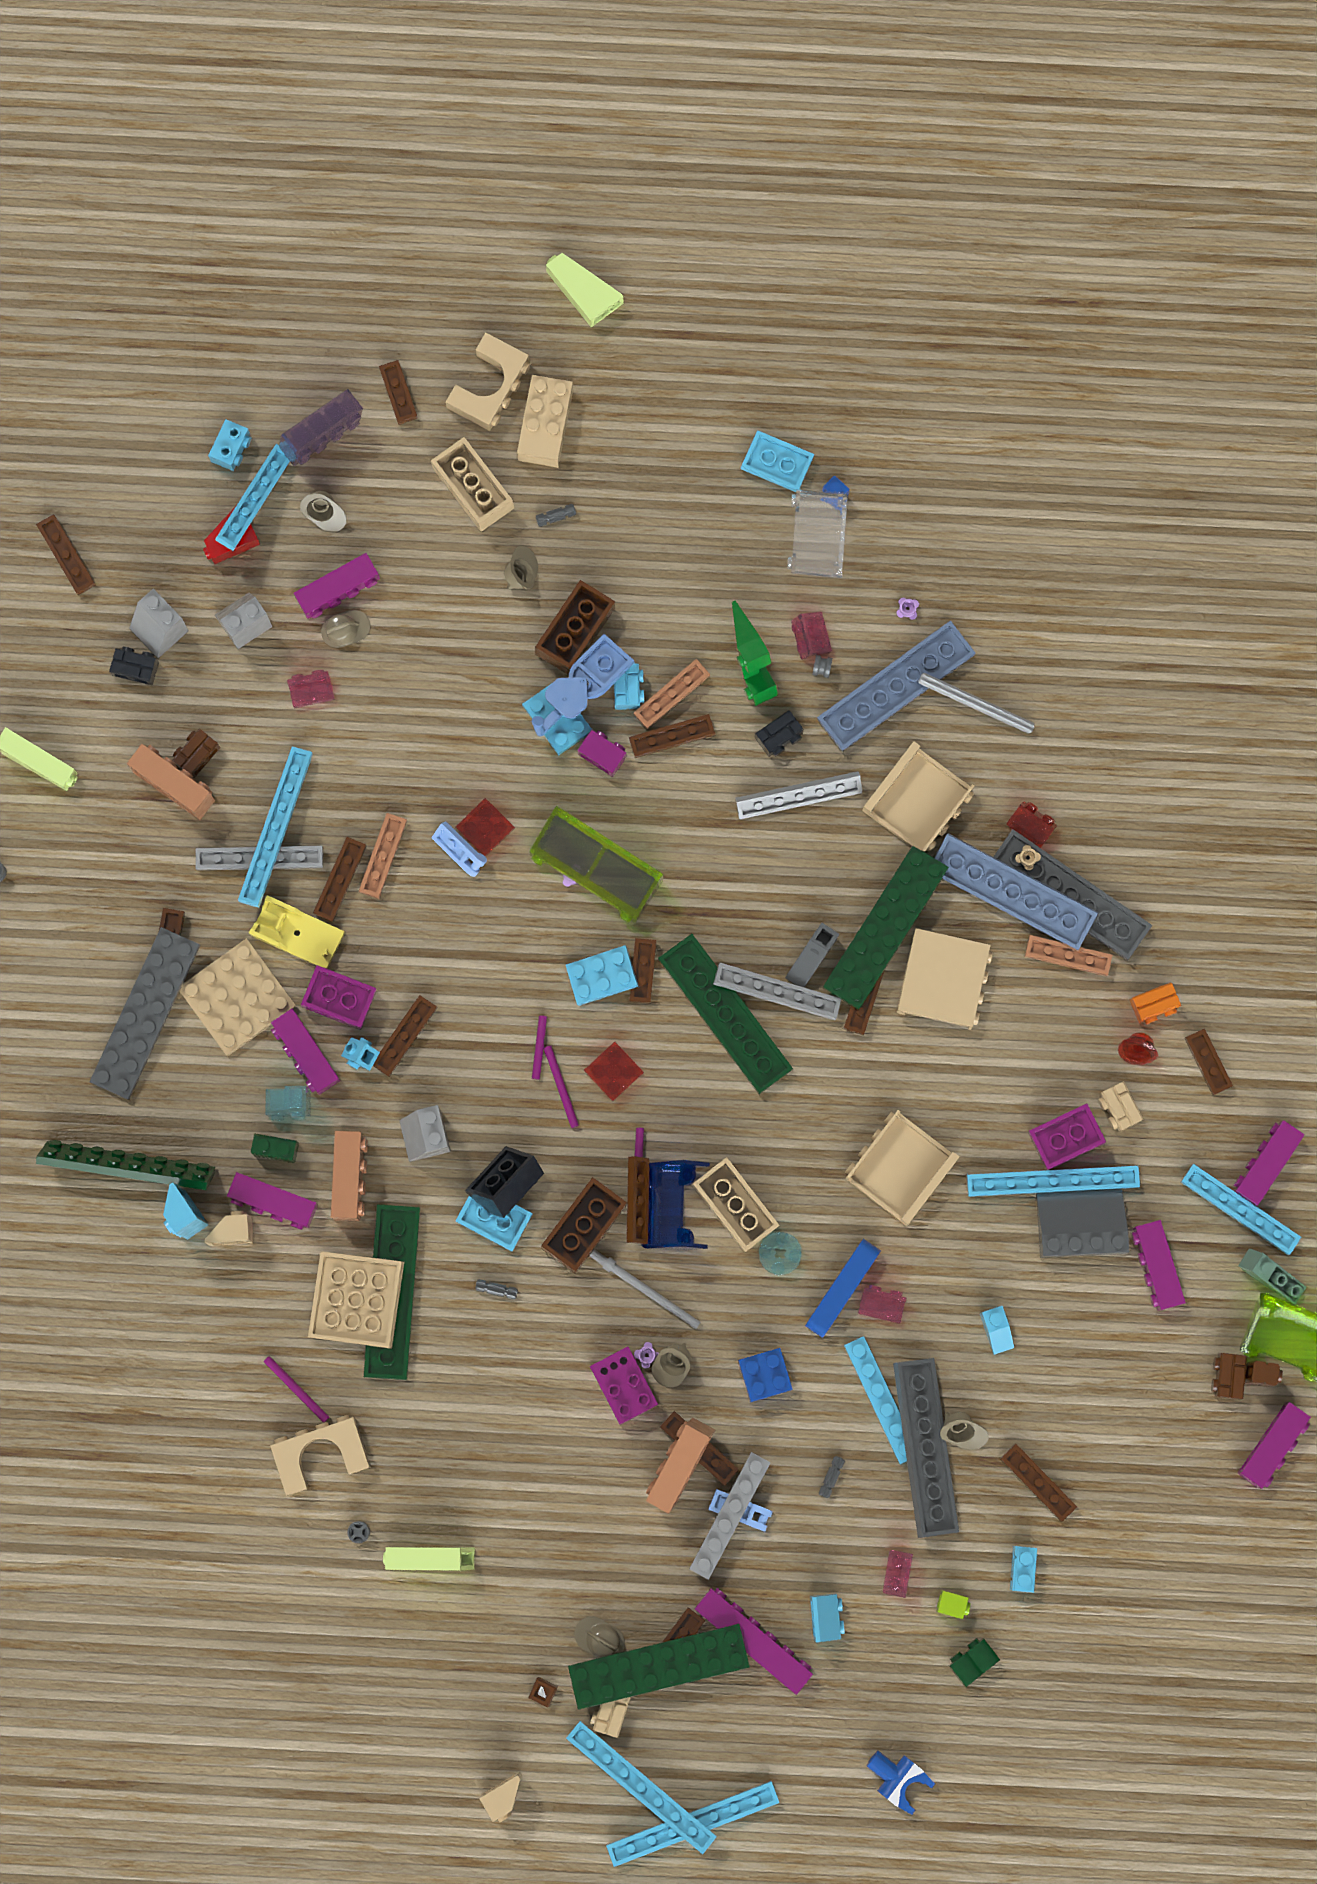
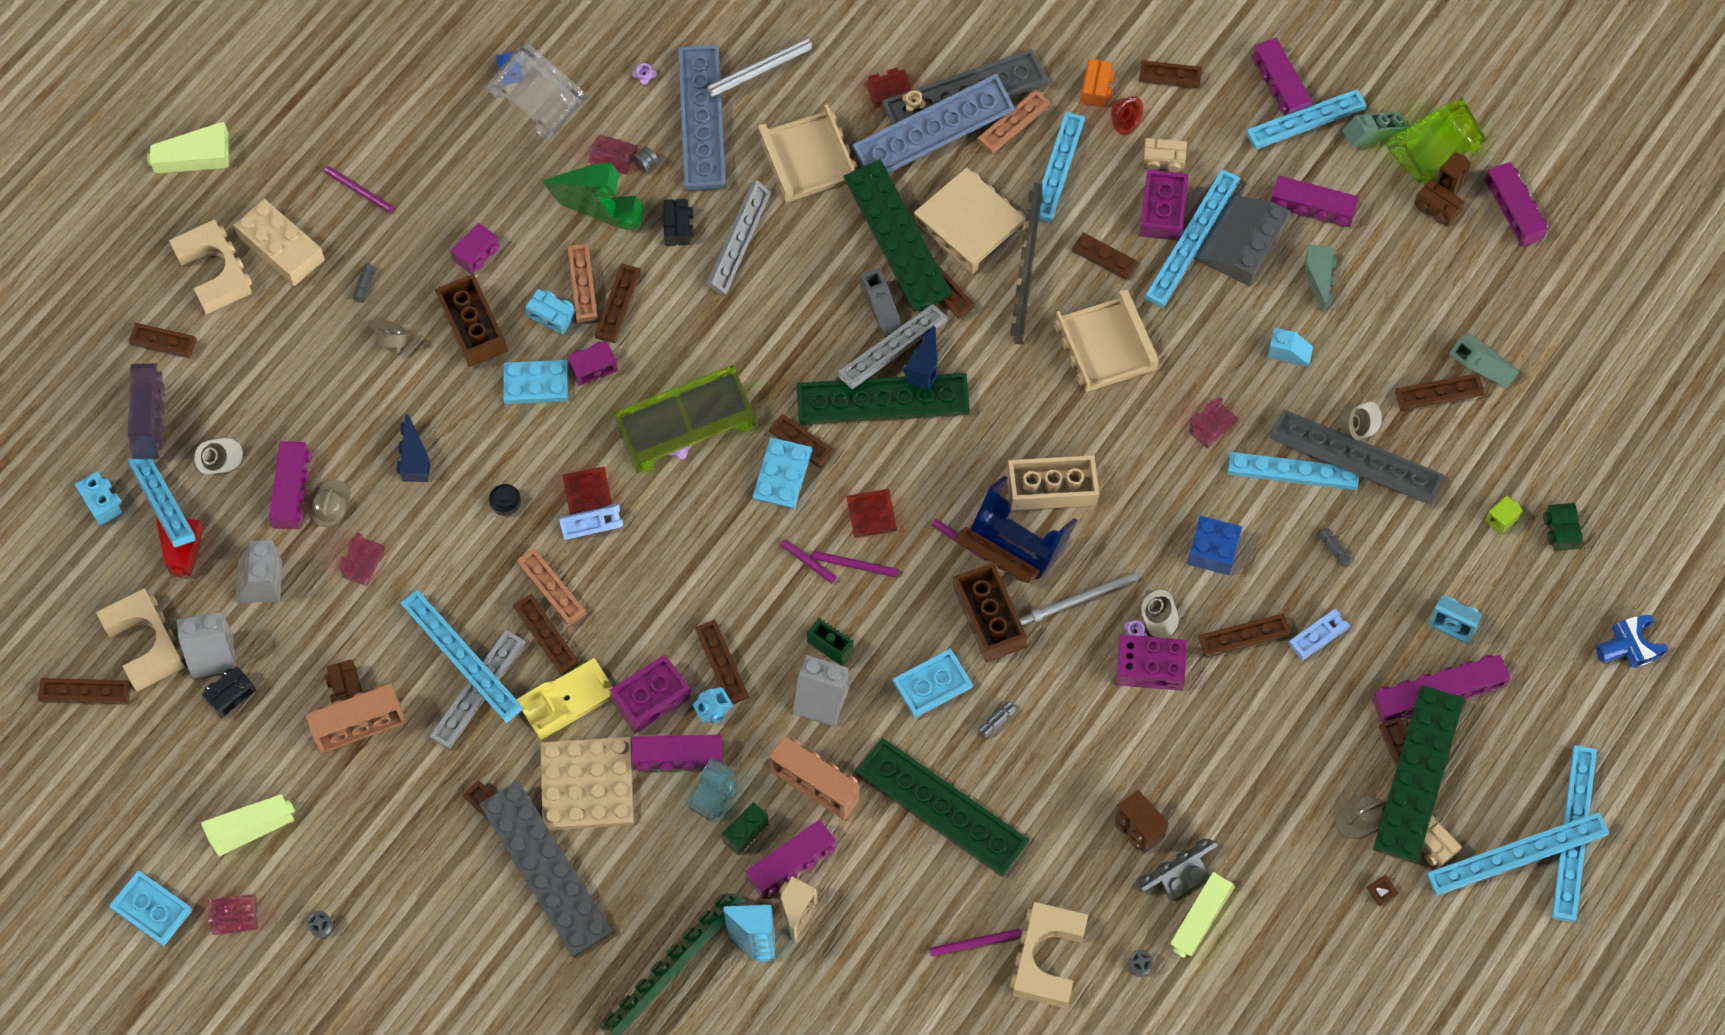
camera: 55 degrees left, 15 degrees down
(159, 549) = (141, 611): none -> tan arch
(356, 1299) = (929, 837): tan plate -> none
(424, 668) = (414, 458): none -> dark blue slope
(435, 766) = (505, 499): none -> black plate
(456, 1518) = (1180, 873): none -> dark grey bracket
(472, 484) = (287, 327): tan brick -> none
(474, 1113) = (830, 642): none -> dark green brick
(474, 1461) = (1140, 822): none -> reddish brown brick
(501, 1798) = (1459, 975): tan slope -> none
(505, 1181) = (908, 650): black slope -> none
(599, 667) = (523, 330): medium blue plate -> none
(639, 453) = (359, 189): none -> magenta bar
(644, 584) = (475, 248): none -> magenta brick
(680, 1465) = (1251, 650): nougat brick -> none
(729, 1515) = (1320, 642): light grey plate -> none
(772, 1030) = (923, 367): none -> dark blue slope
(777, 461) = (450, 95): medium azure plate -> none
(777, 1265) = (1125, 467): clear light blue plate -> none
(843, 1288) = (1179, 444): blue beam -> none
(897, 1573) = (1452, 539): clear pink bracket -> none
(939, 1050) = (1025, 271): none -> clear smoke plate
(986, 1115) = (1104, 256): none -> reddish brown plate
(1023, 1569) = (1506, 443): medium azure brick -> none
(1048, 1022) = (1060, 164): none -> medium azure plate
(1092, 1308) = (1318, 273): none -> sand green slope
(1092, 1501) = (1483, 360): none -> sand green slope

